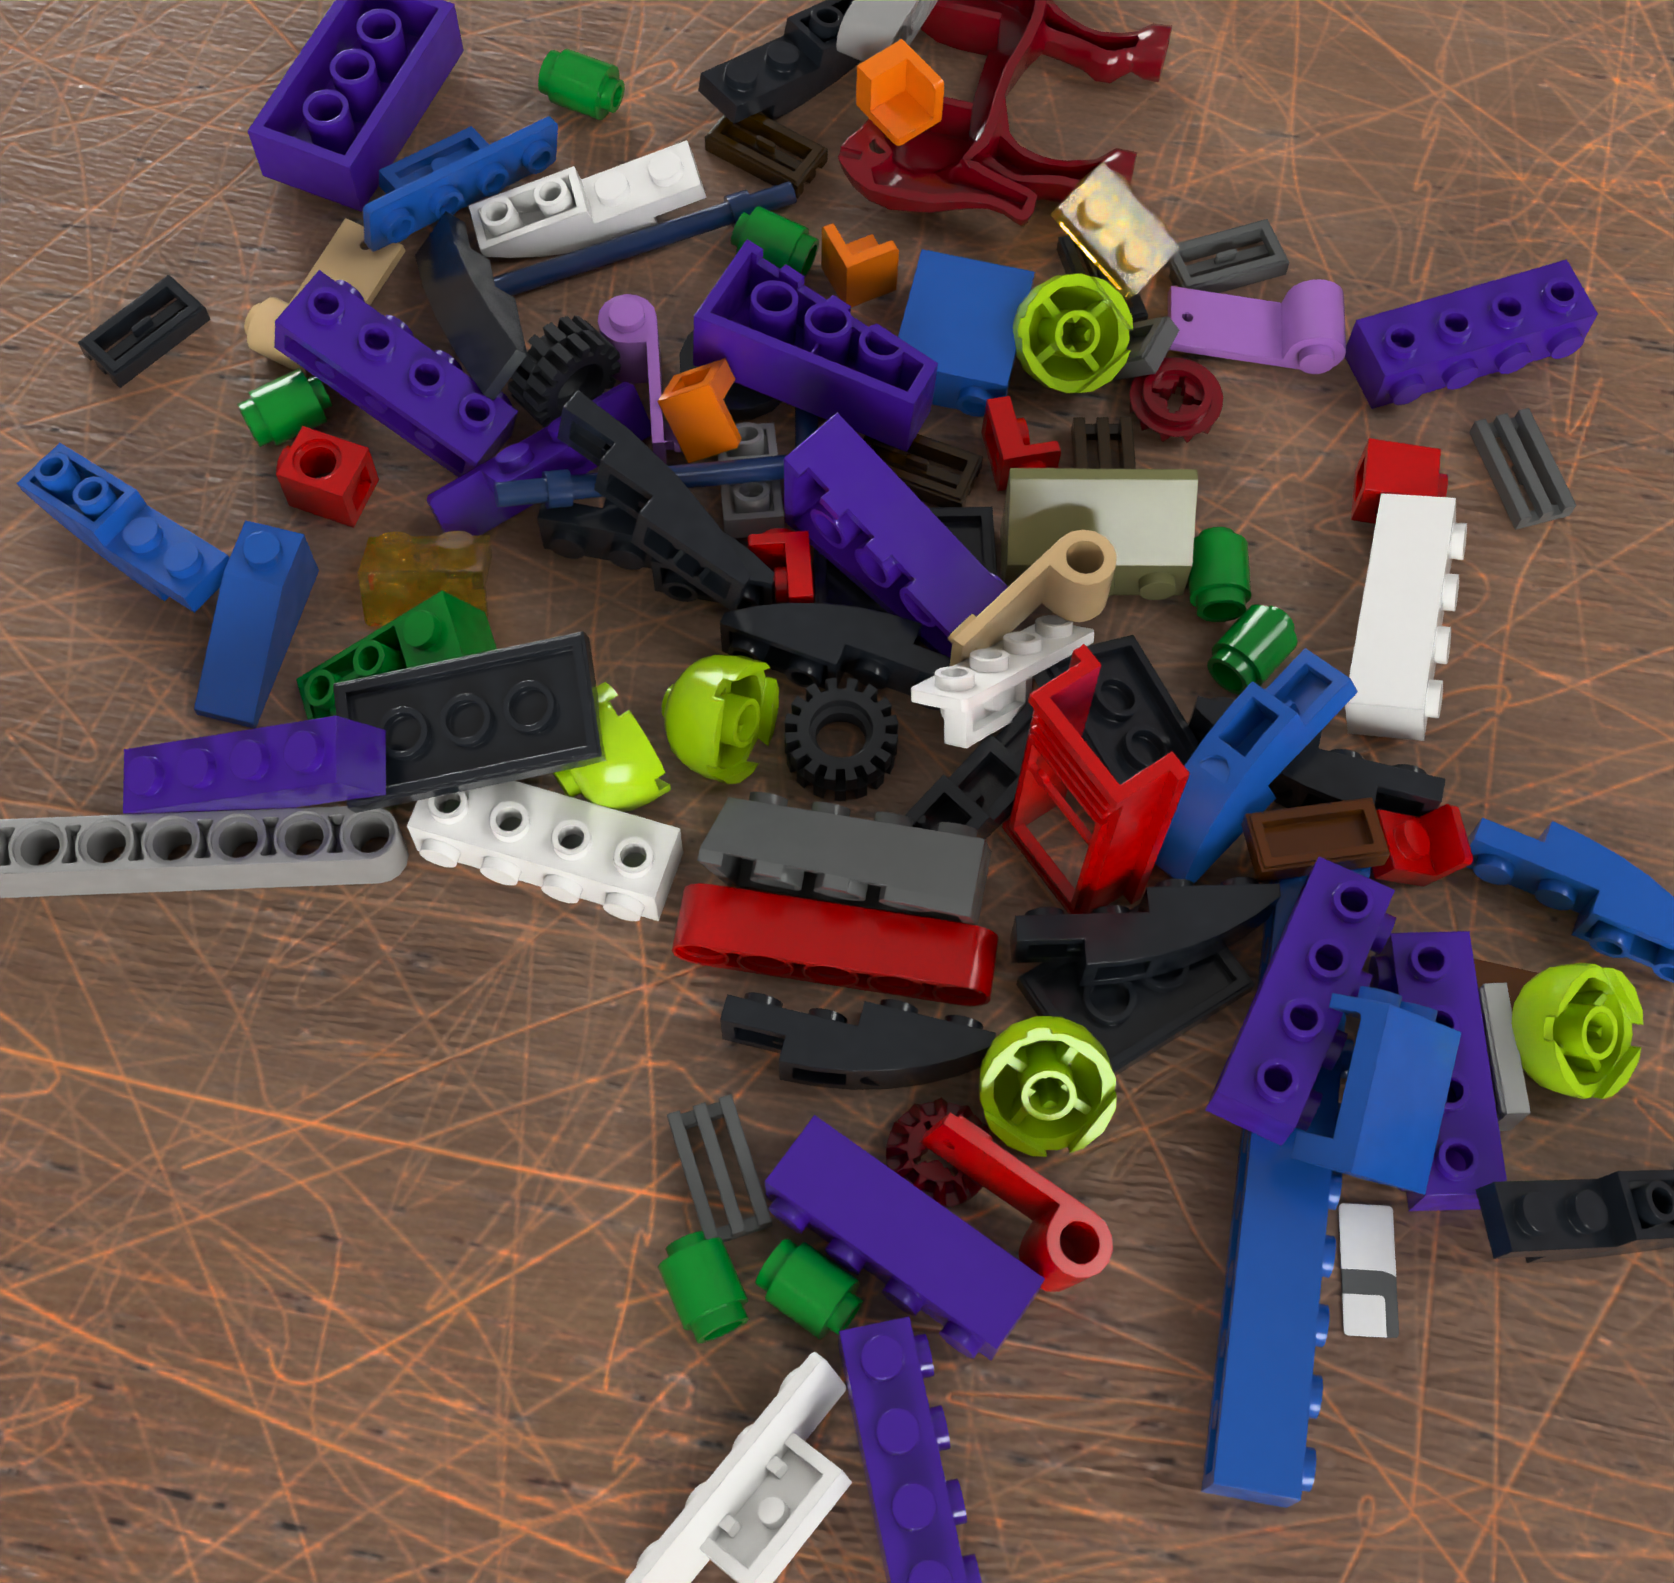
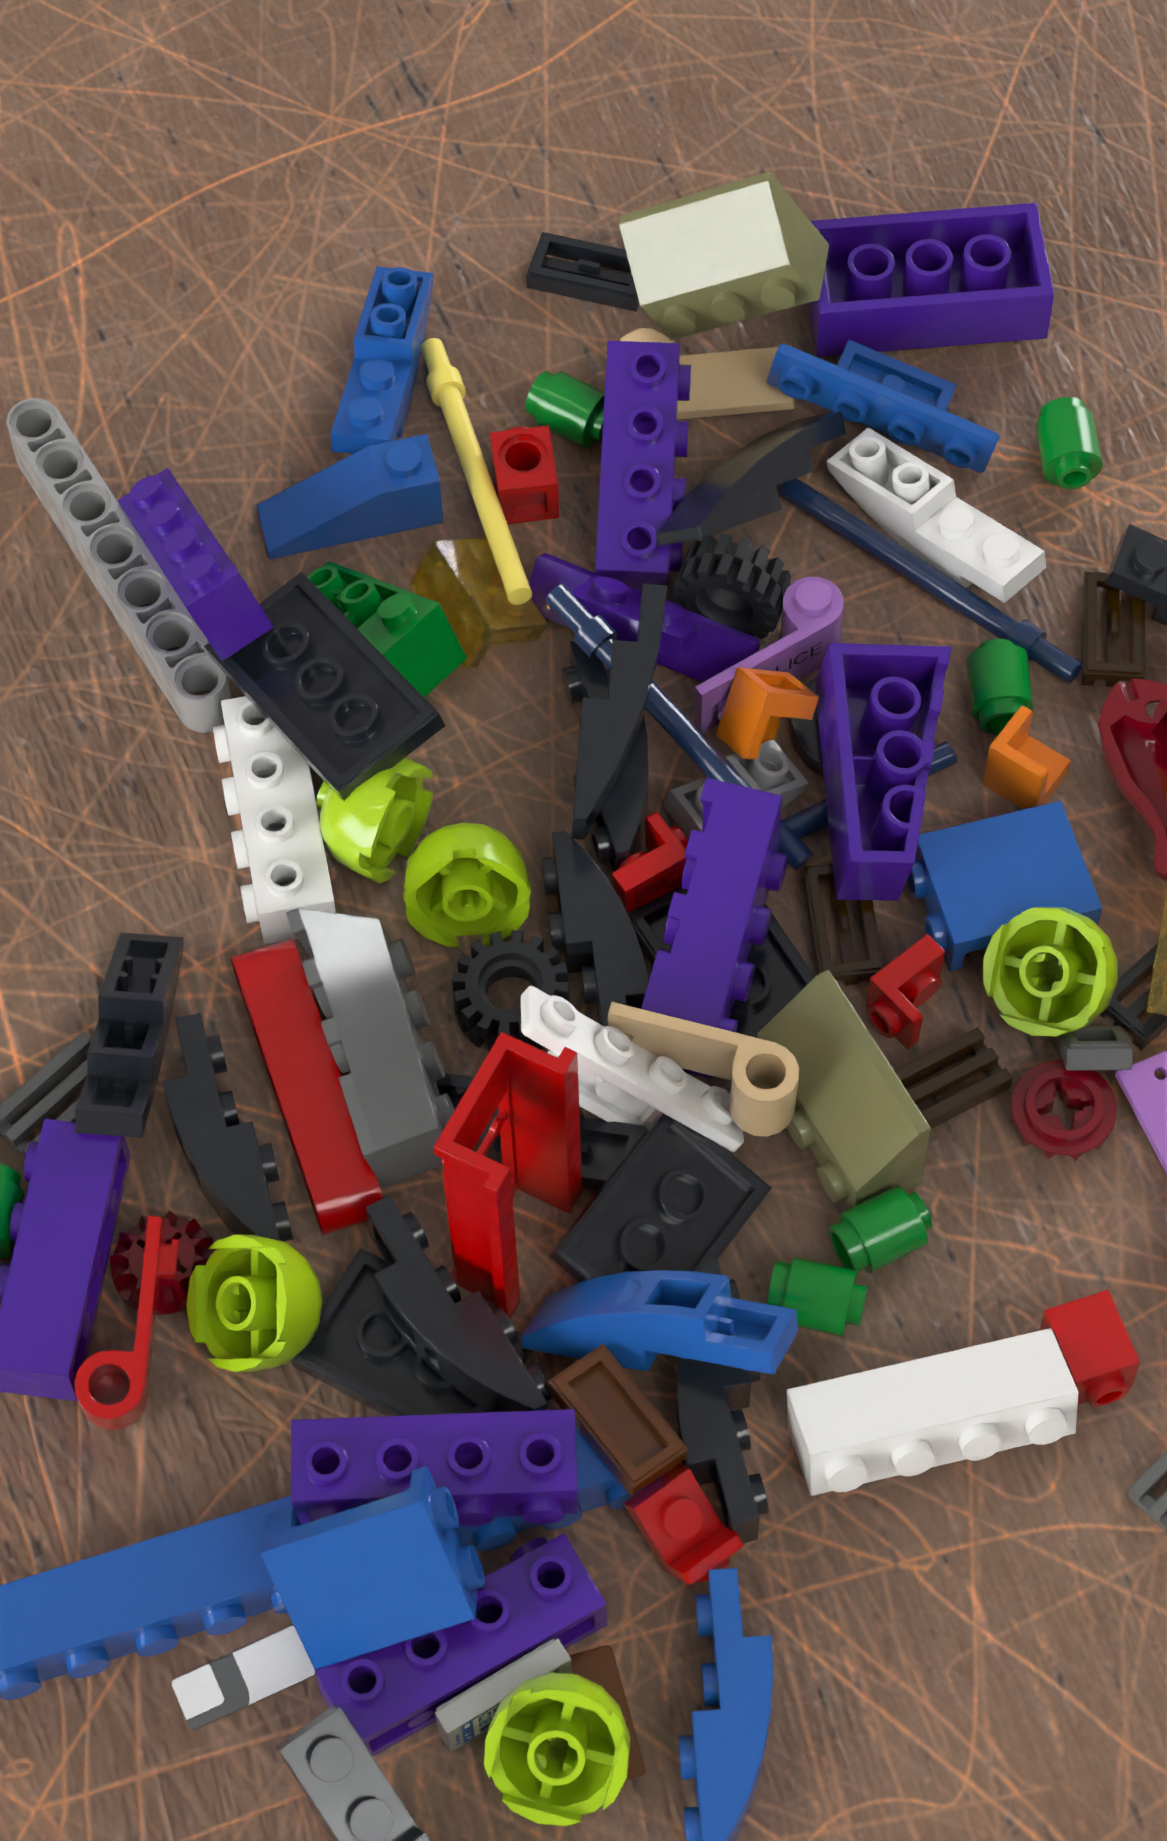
camera: 65 degrees right, 5 degrees down
(190, 496) = (448, 393): none -> light yellow bar
(240, 203) = (723, 256): none -> slope
(707, 1069) = (129, 1035): none -> black slope

